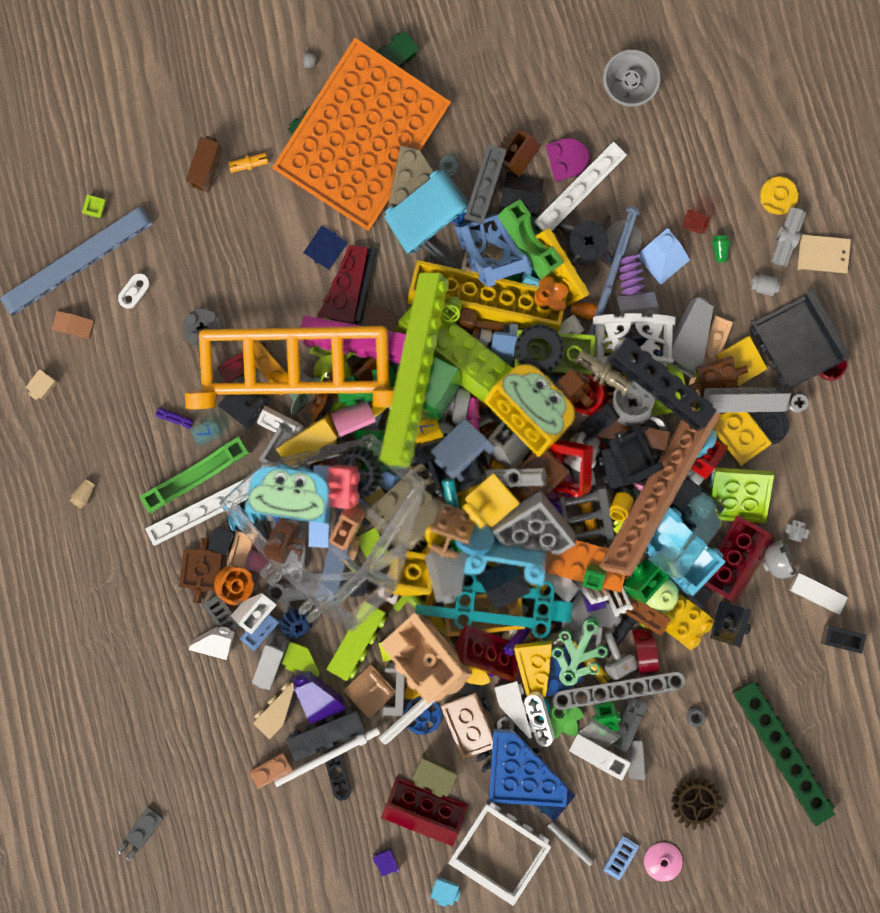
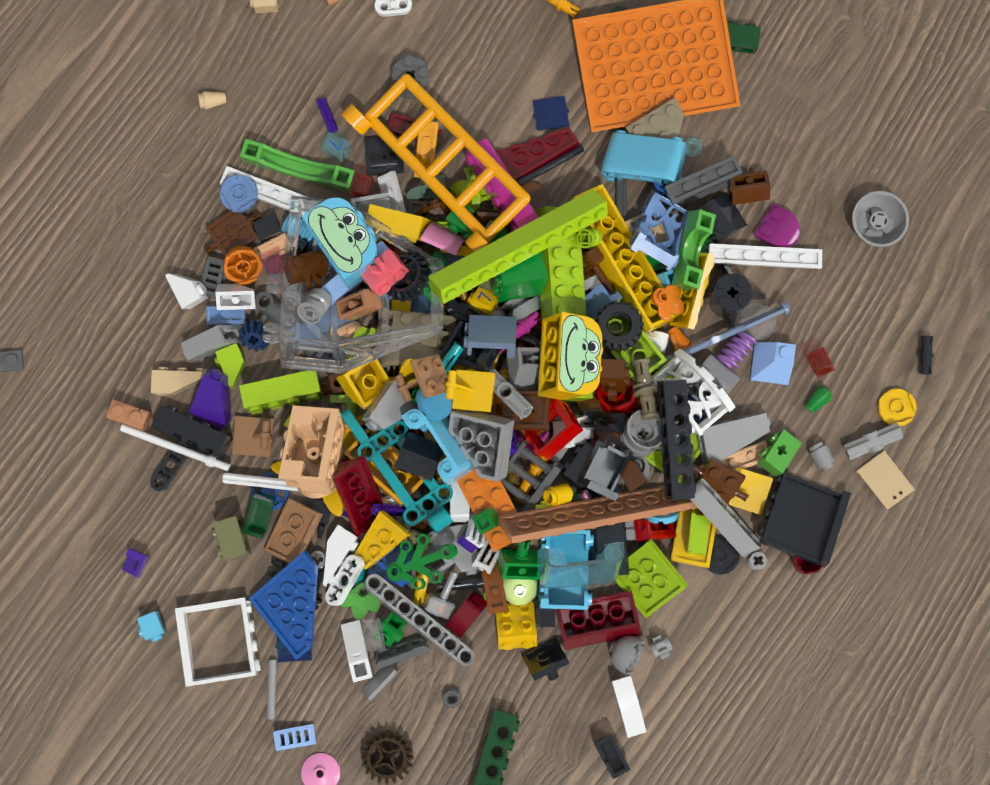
camera: 45 degrees right, 5 degrees down
(175, 538) = (238, 193): none -> medium blue tile
(253, 440) = (361, 185): none -> clear red brick
(319, 561) = (314, 306): none -> light grey wheel
(397, 708) = (271, 457): light grey panel -> none
(424, 811) = (198, 556): dark red slope -> none
(434, 739) = (259, 515): none -> dark green panel
(738, 306) = (779, 452): none -> bright green brick
(741, 429) = (697, 534): none -> lime panel
(760, 138) = (926, 355): none -> black pin

